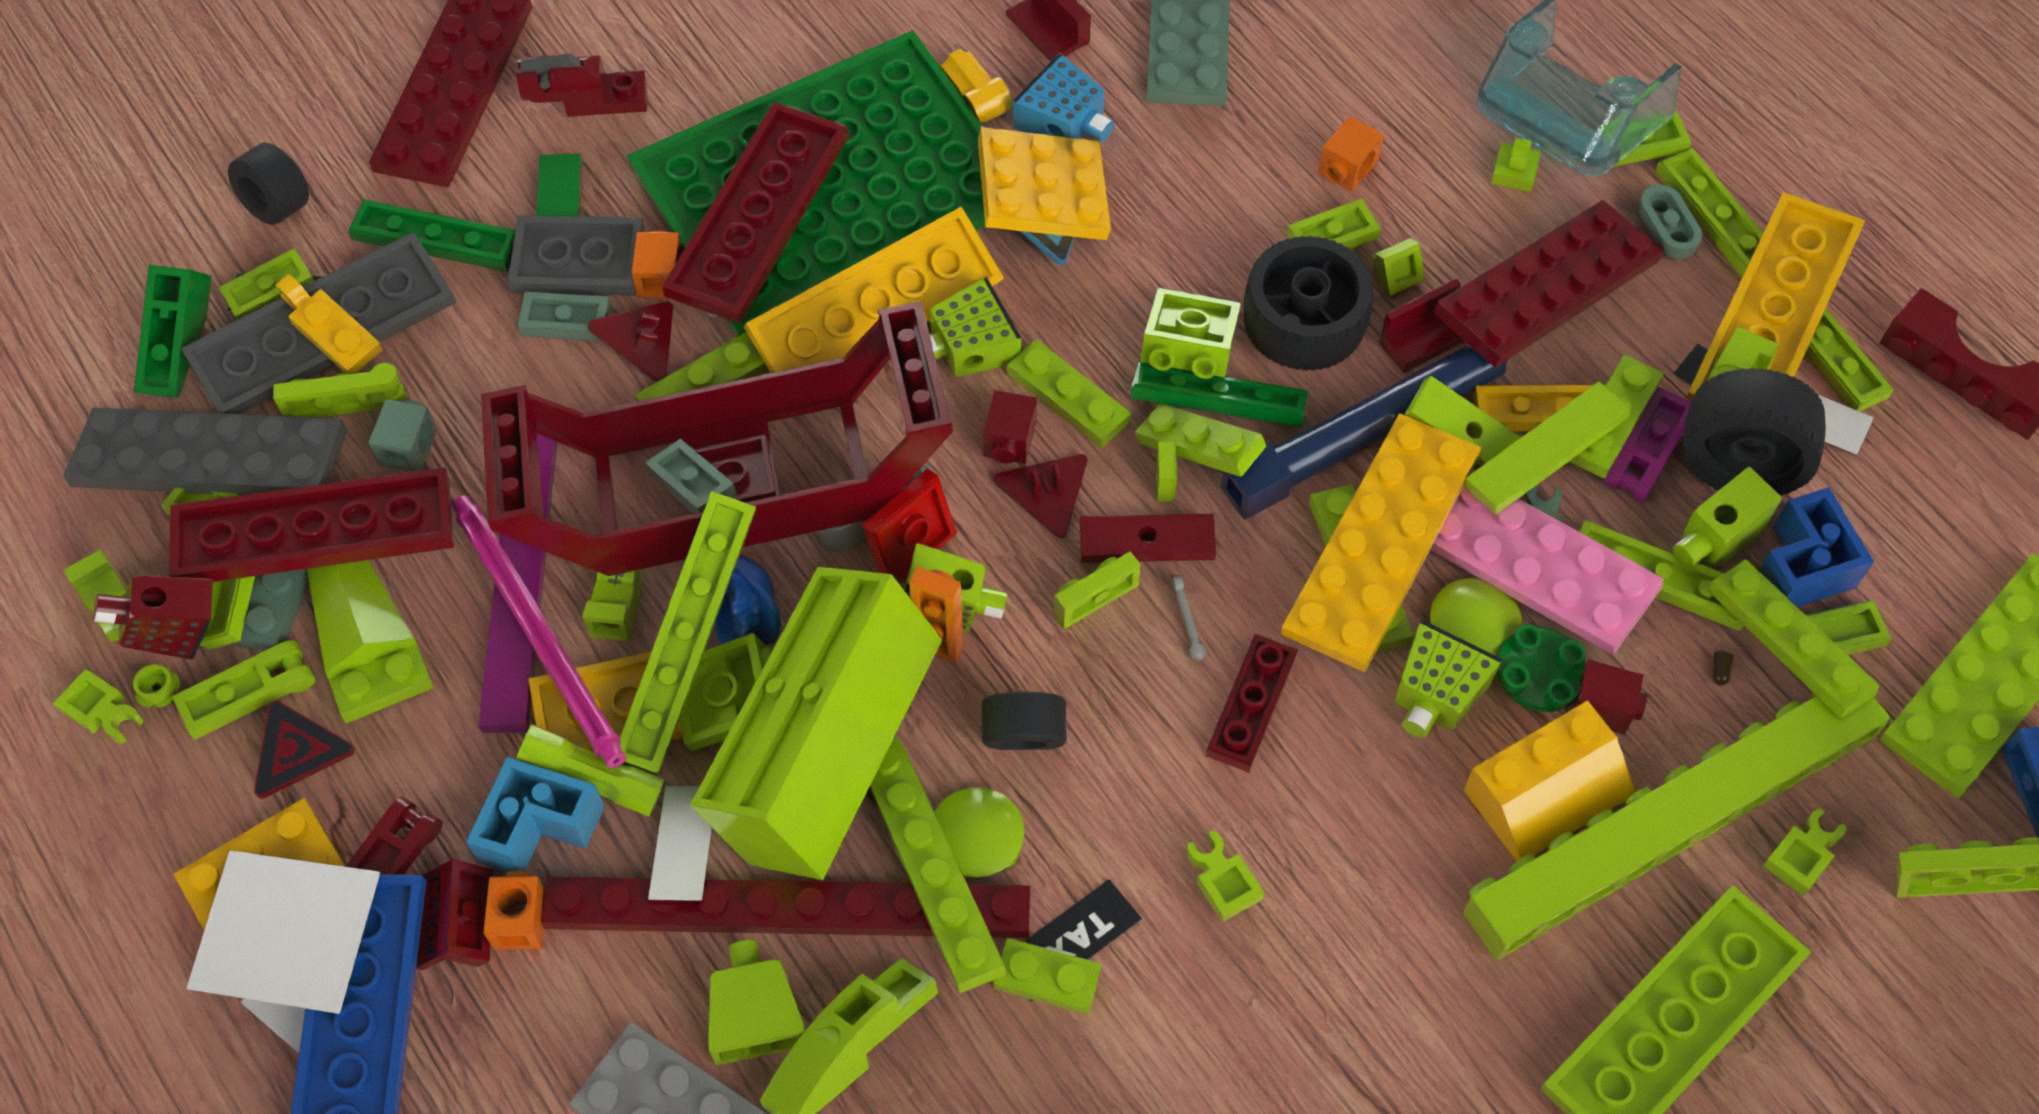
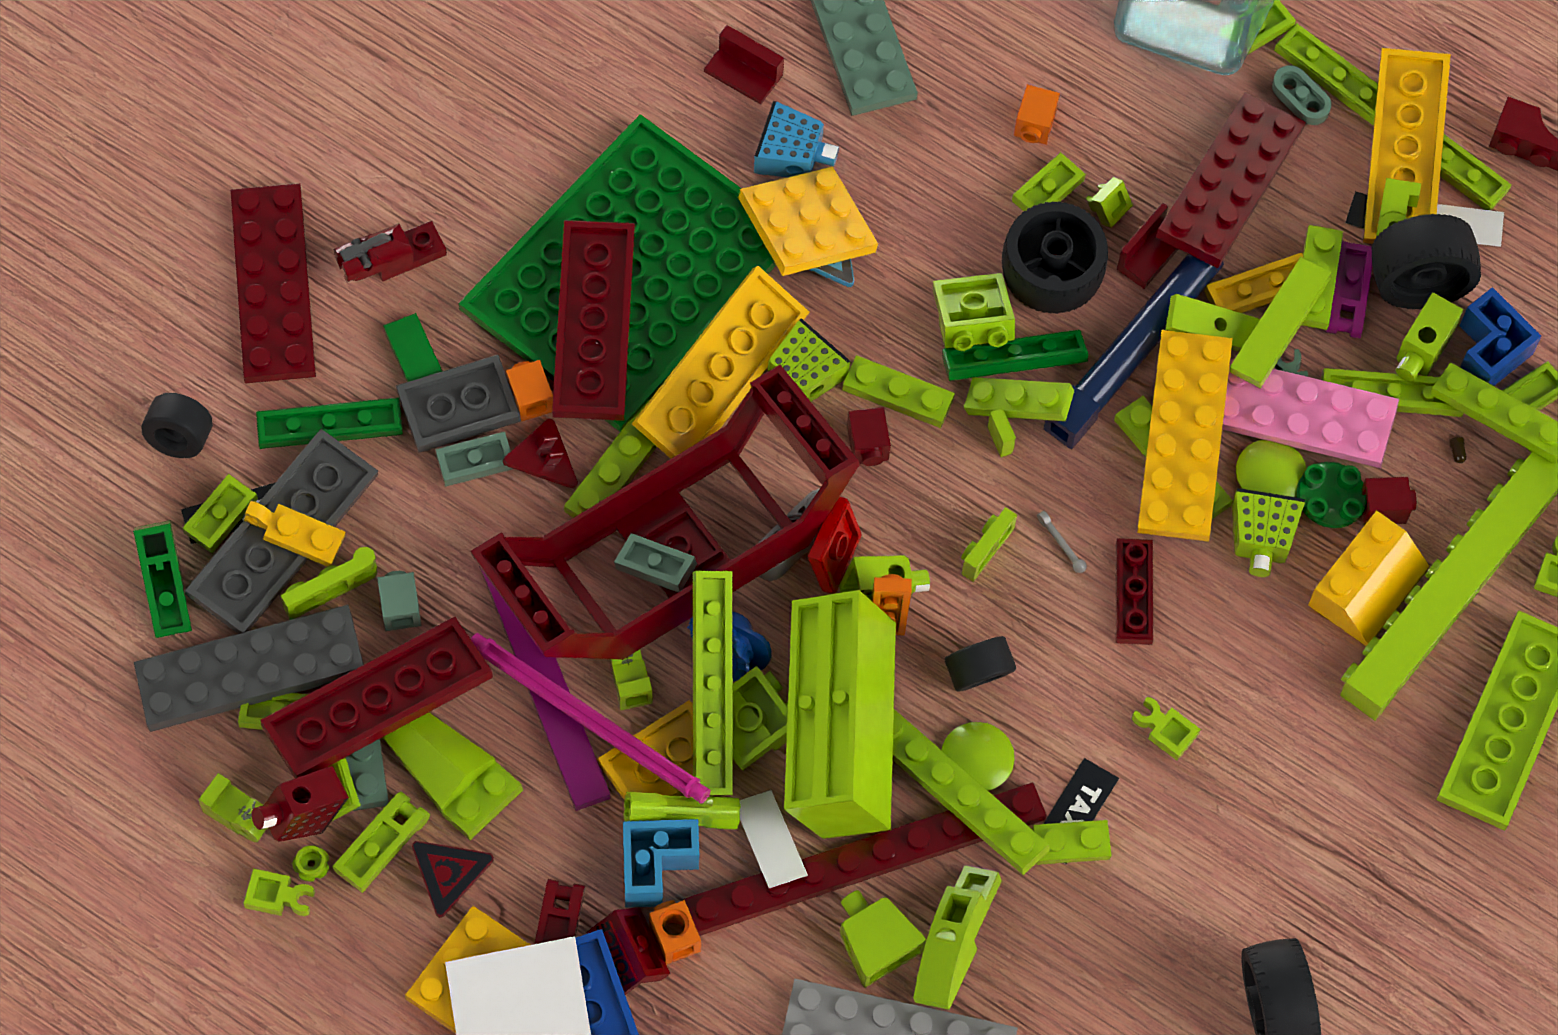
camera: 25 degrees left, 5 degrees up
(983, 95) = (722, 154): yellow piece -> none
(1046, 490) = (914, 476): dark red piece -> none
(1172, 537) = (1026, 482): dark red tile -> none
(1516, 165) = (1167, 82): lime tile -> none

